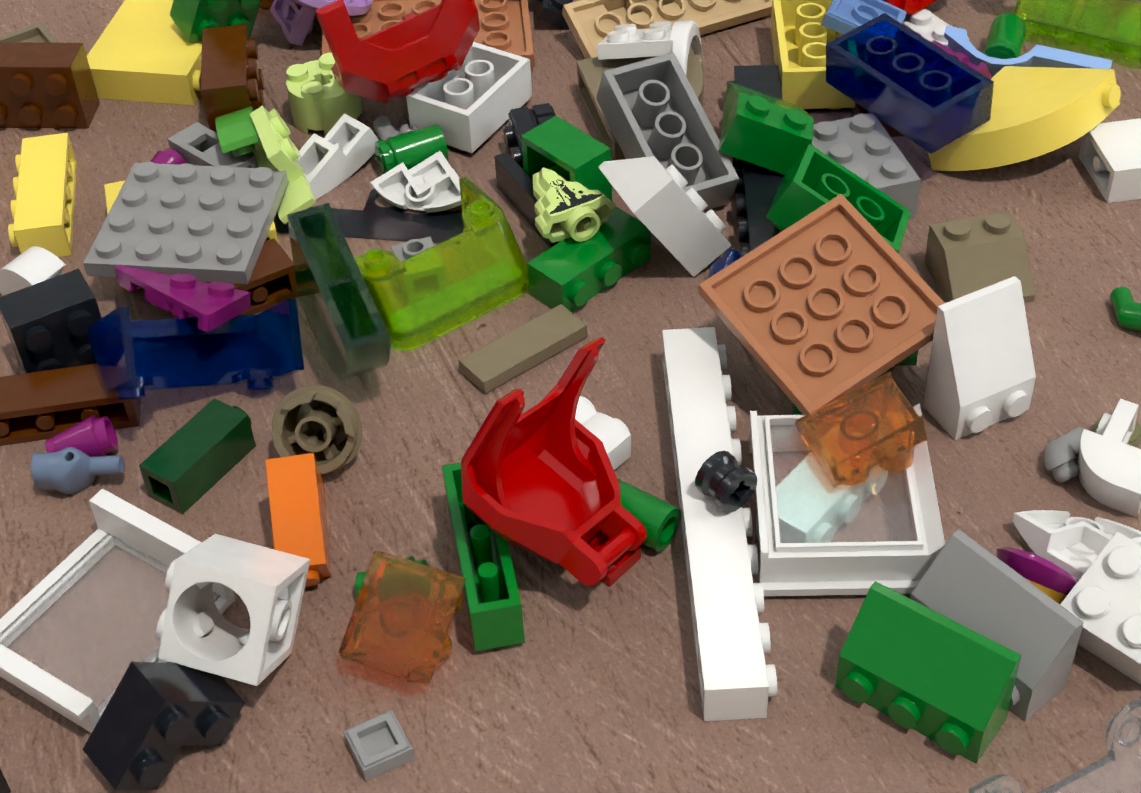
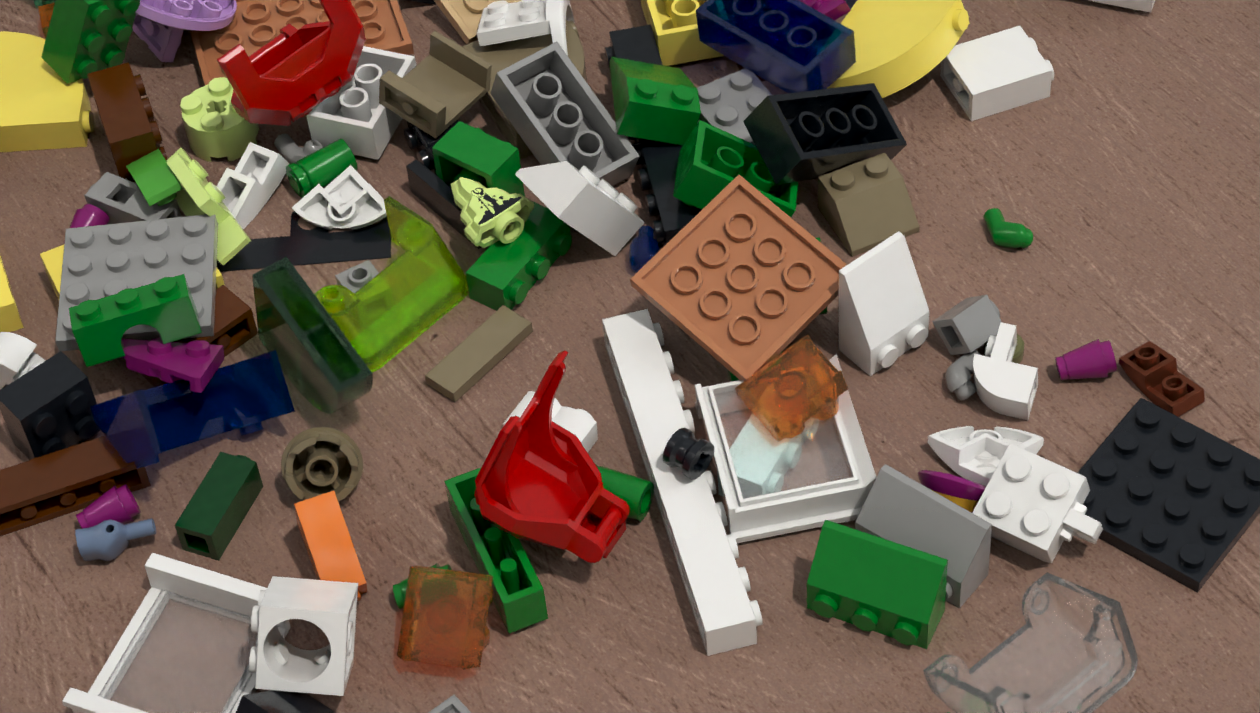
camera: 10 degrees left, 5 degrees up
(195, 238) = (162, 304): none -> green arch
(549, 88) = (438, 87): none -> dark tan panel
(941, 175) = (822, 131): none -> black brick
(1079, 399) = (968, 324): none -> light grey brick

